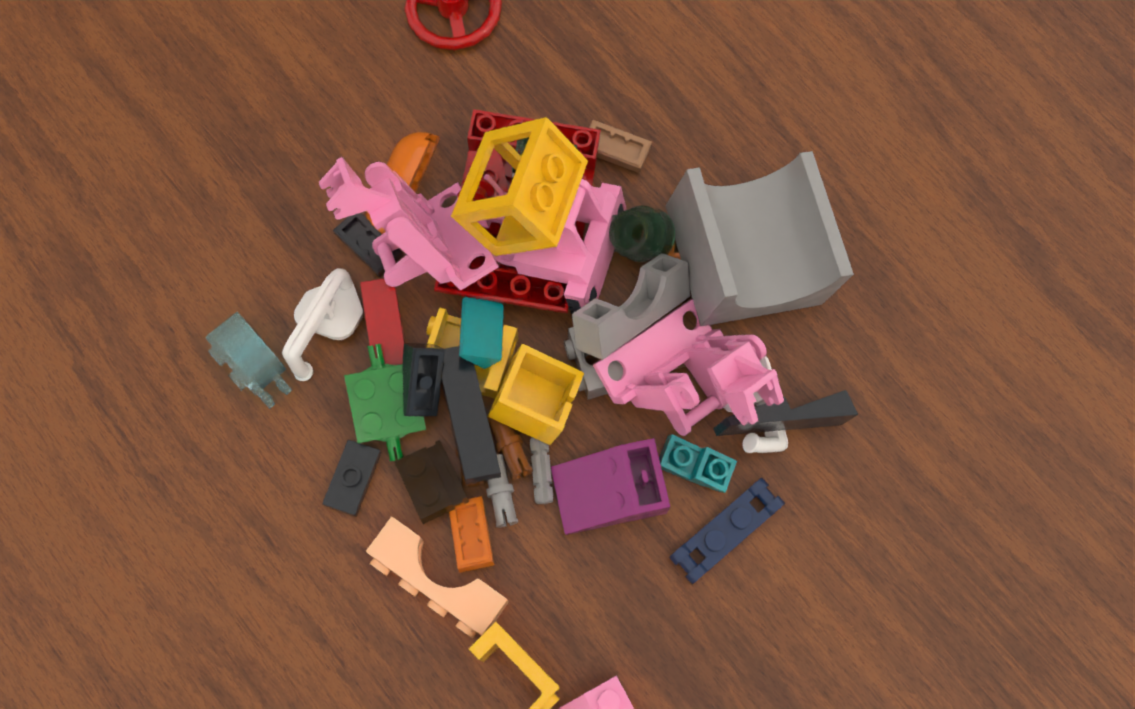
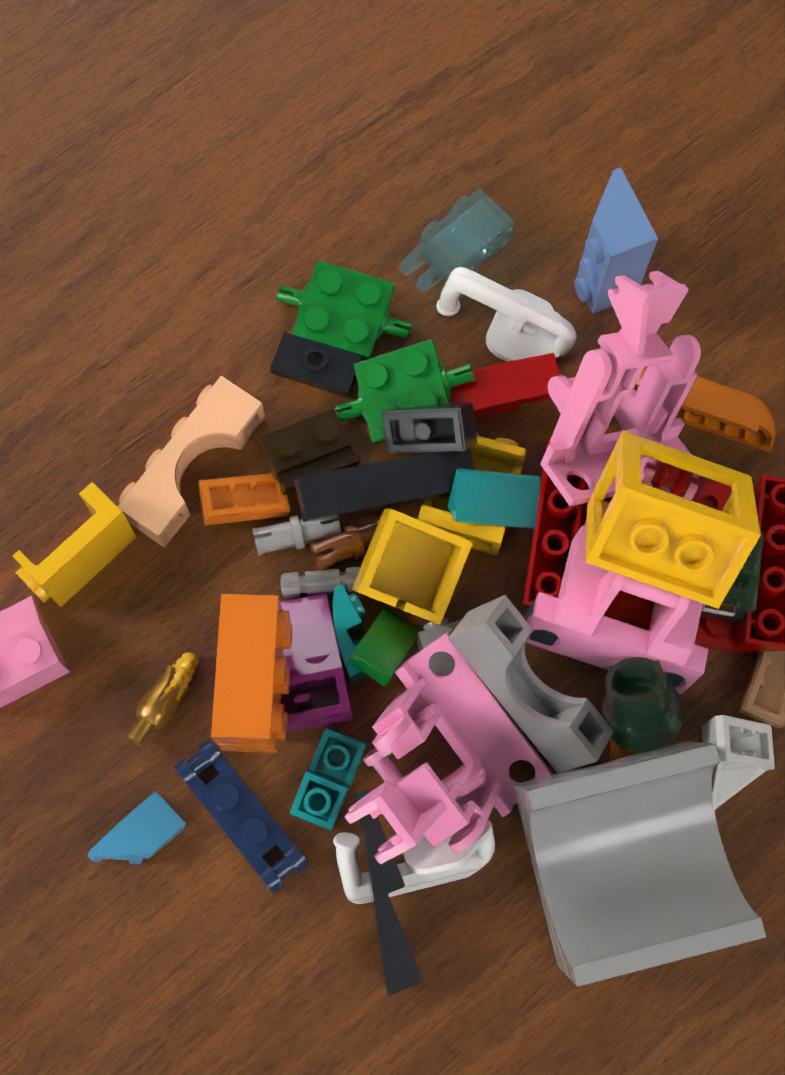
camera: 90 degrees right, 0 degrees up
(269, 231) = (616, 245): none -> medium blue slope
(304, 455) = (344, 309): none -> green plate
(570, 448) = (348, 623): none -> teal slope
(599, 416) = (384, 647): none -> green slope
(637, 594) = (163, 698): none -> pearl gold piece
(638, 505) = (251, 673): none -> orange piece
(664, 174) = (743, 752): none -> white slope
(745, 607) = (140, 832): none -> dark azure slope

